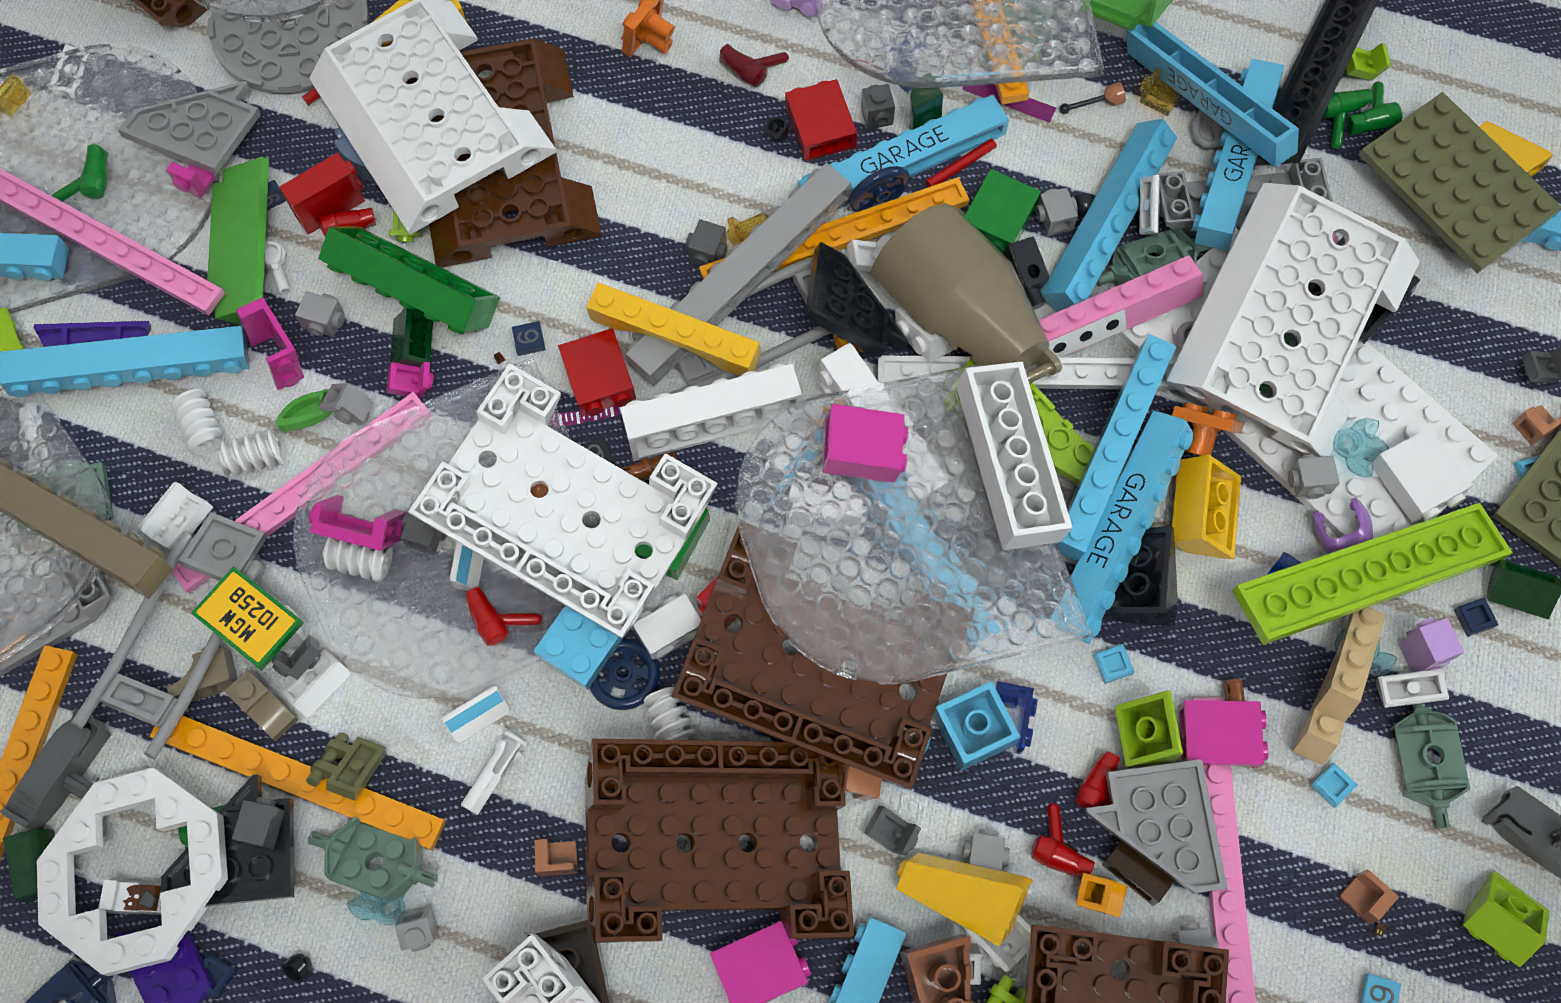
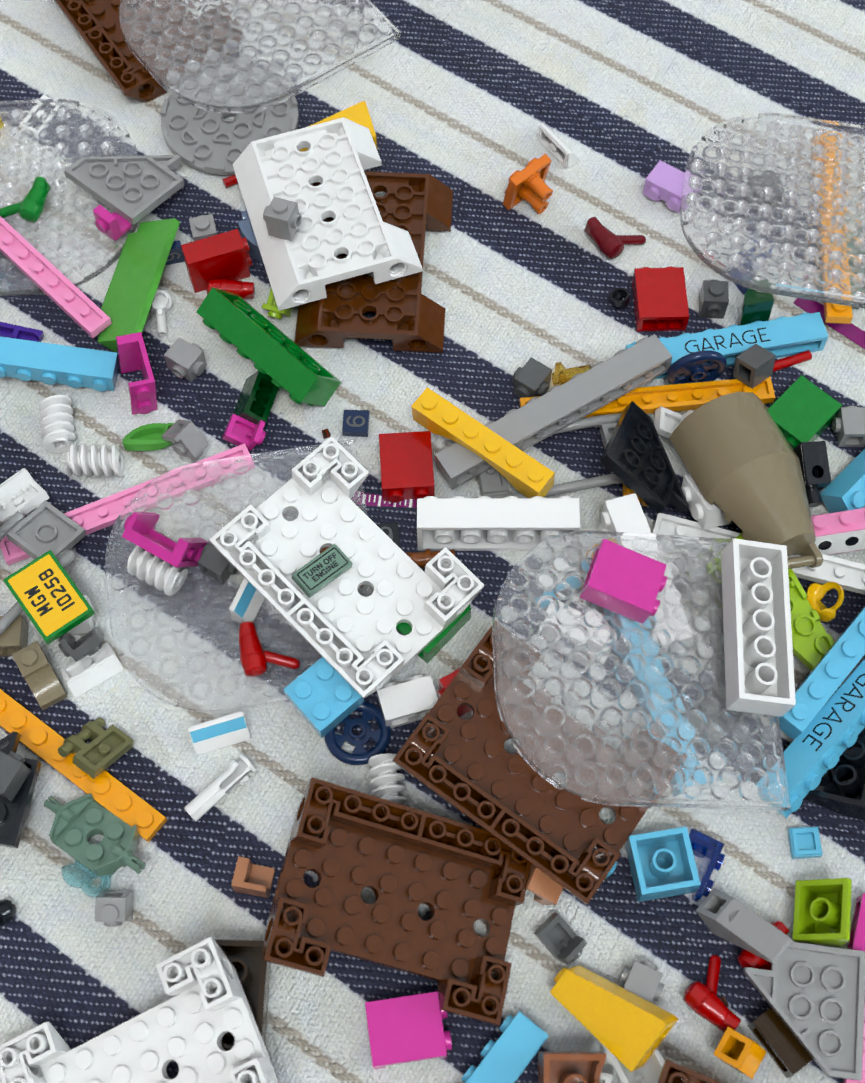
camera: 15 degrees right, 5 degrees down
(296, 159) = (202, 227): none -> light grey brick
(386, 130) = (282, 218): none -> light grey brick
(539, 513) = (322, 570): none -> sand green tile
(939, 170) = (754, 365): none -> dark grey brick
(1062, 399) = (816, 592): none -> yellow piece
(1073, 768) = (742, 926): none -> light grey slope

